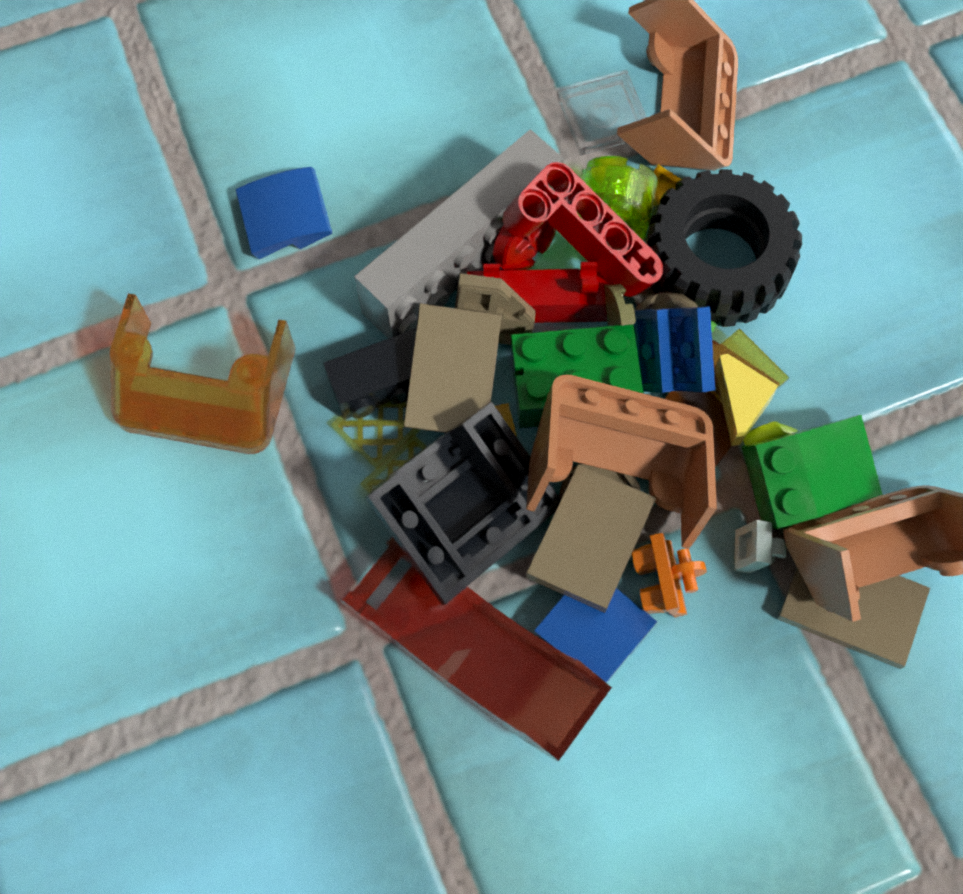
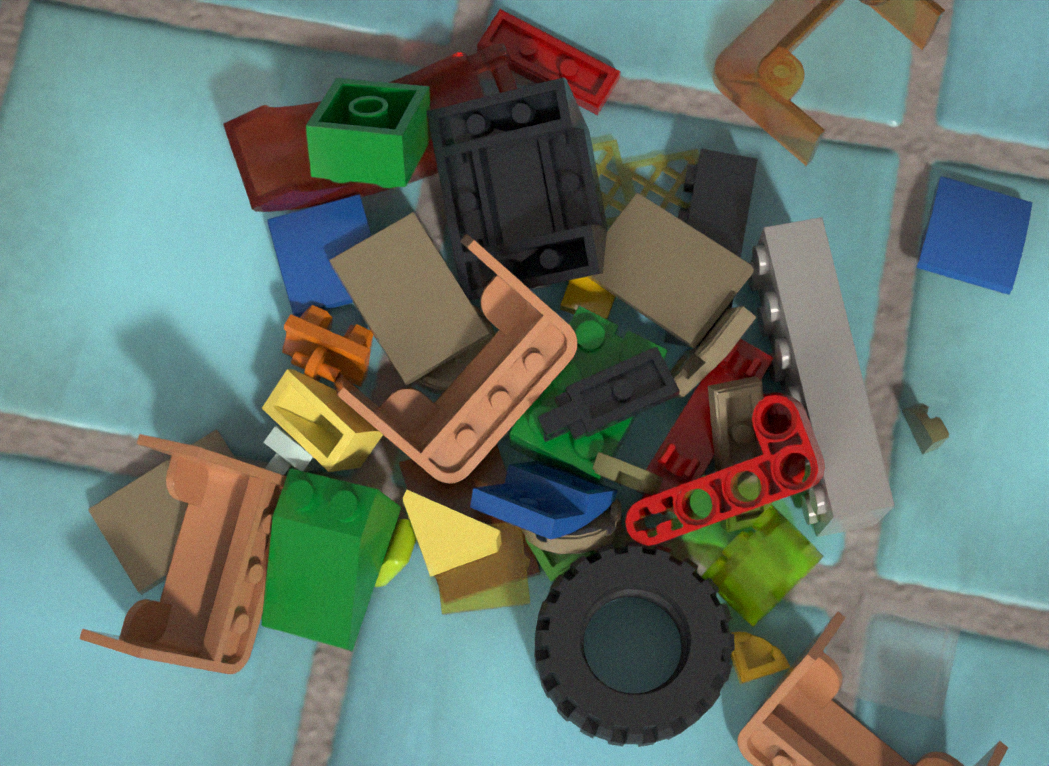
camera: 120 degrees right, 5 degrees up
(326, 571) = (546, 58): none -> red tile
(447, 171) = (927, 432): none -> olive tile
(492, 632) = (369, 132): none -> green brick
(539, 256) = (736, 439): none -> dark tan tile
(581, 337) = (610, 397): none -> black hinge
(729, 536) = (321, 422): none -> light yellow slope

